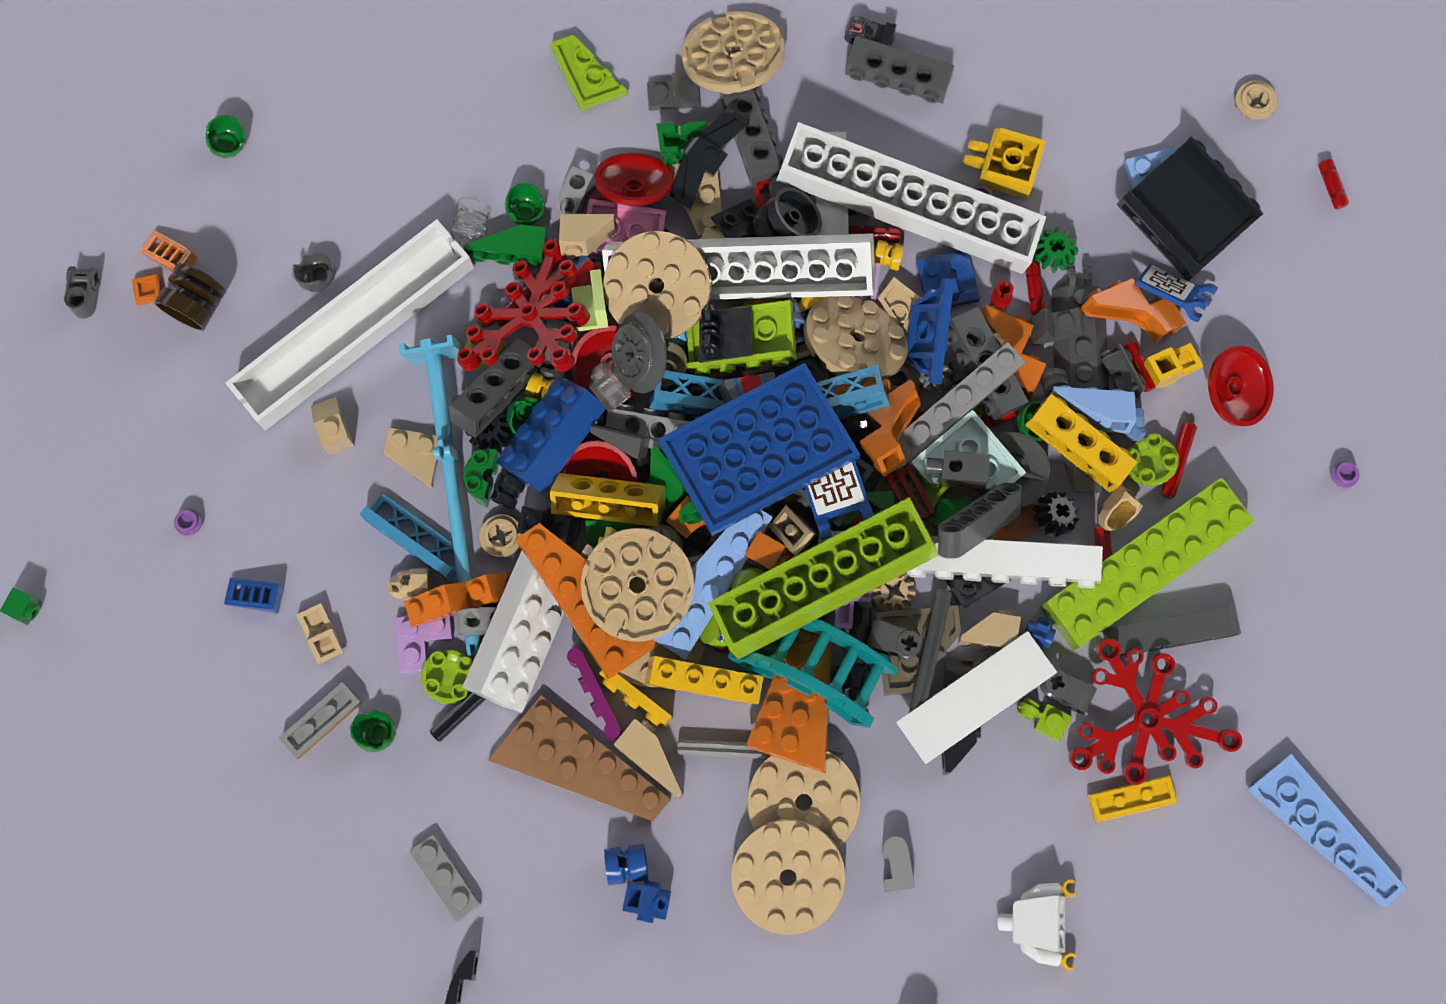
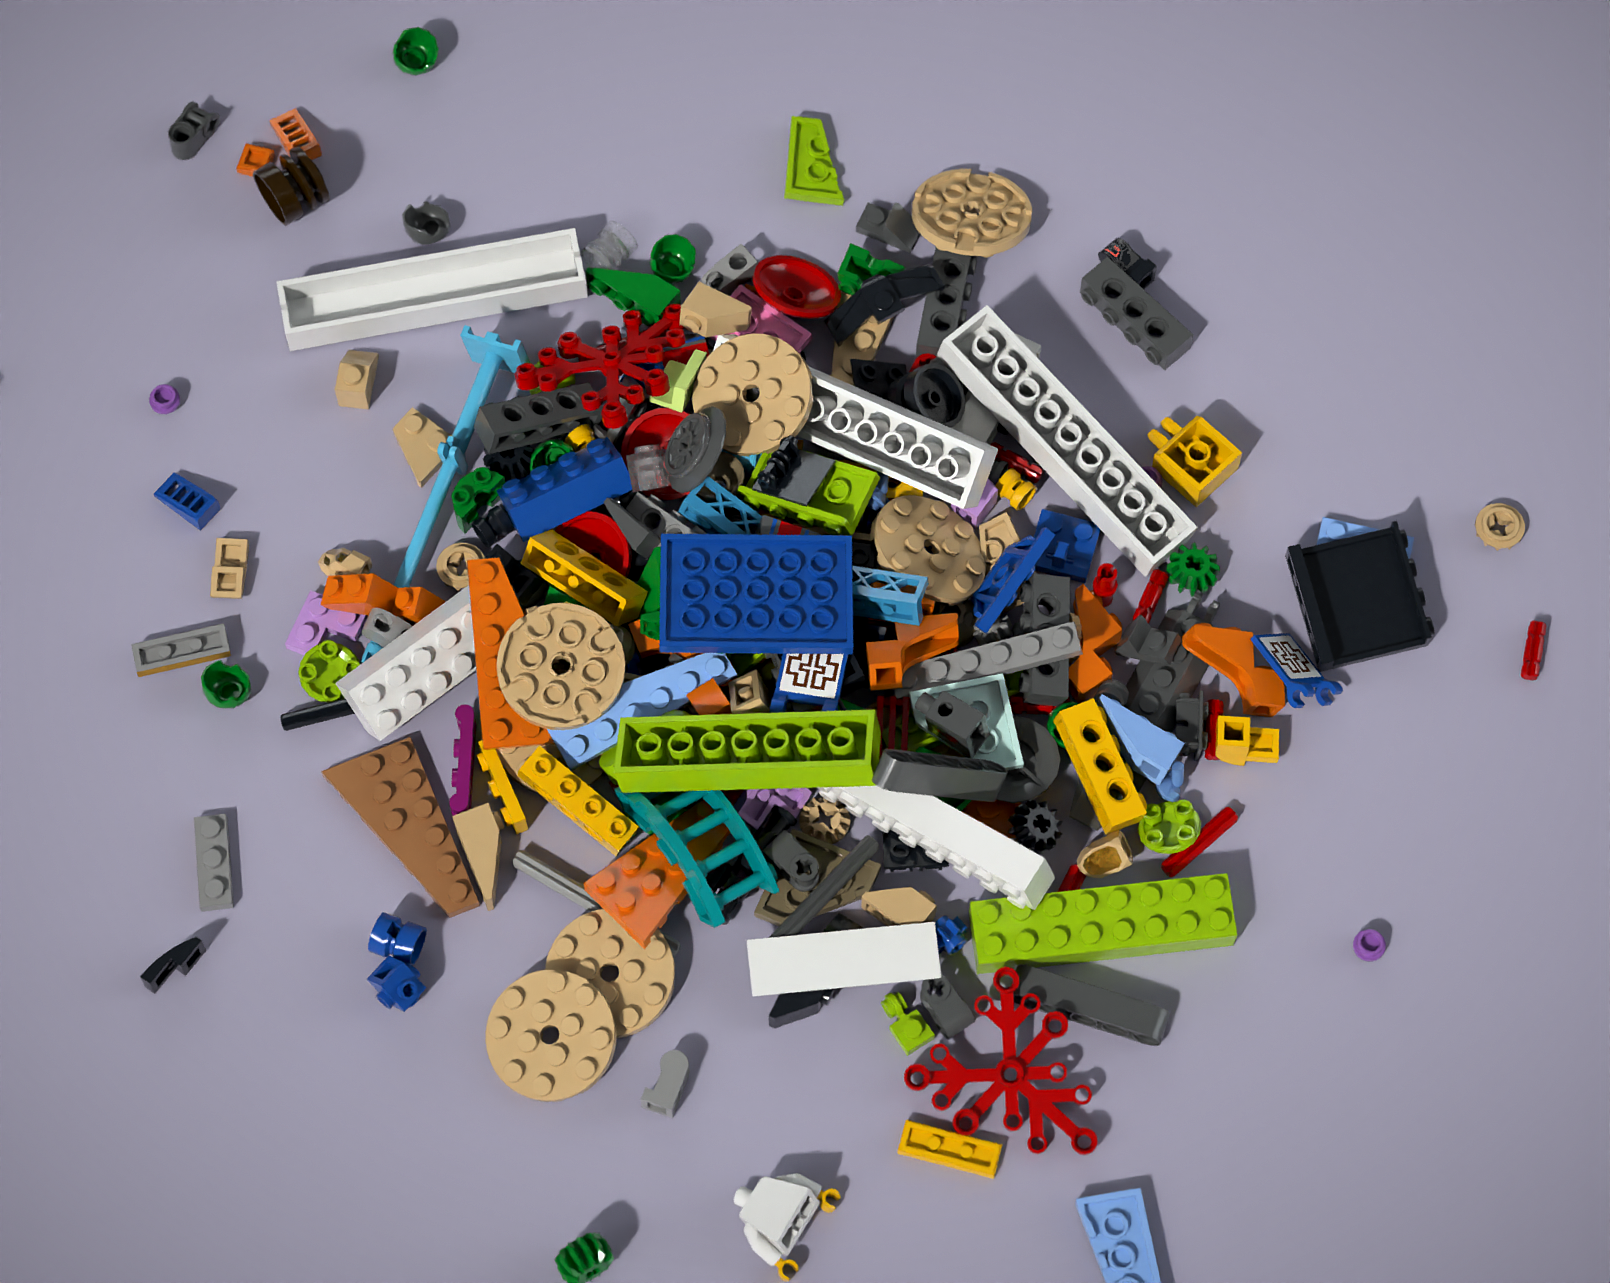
camera: 25 degrees right, 10 degrees down
(405, 541) = (365, 524): dark azure fence -> none
(1240, 386) = (1320, 802): red dish -> none

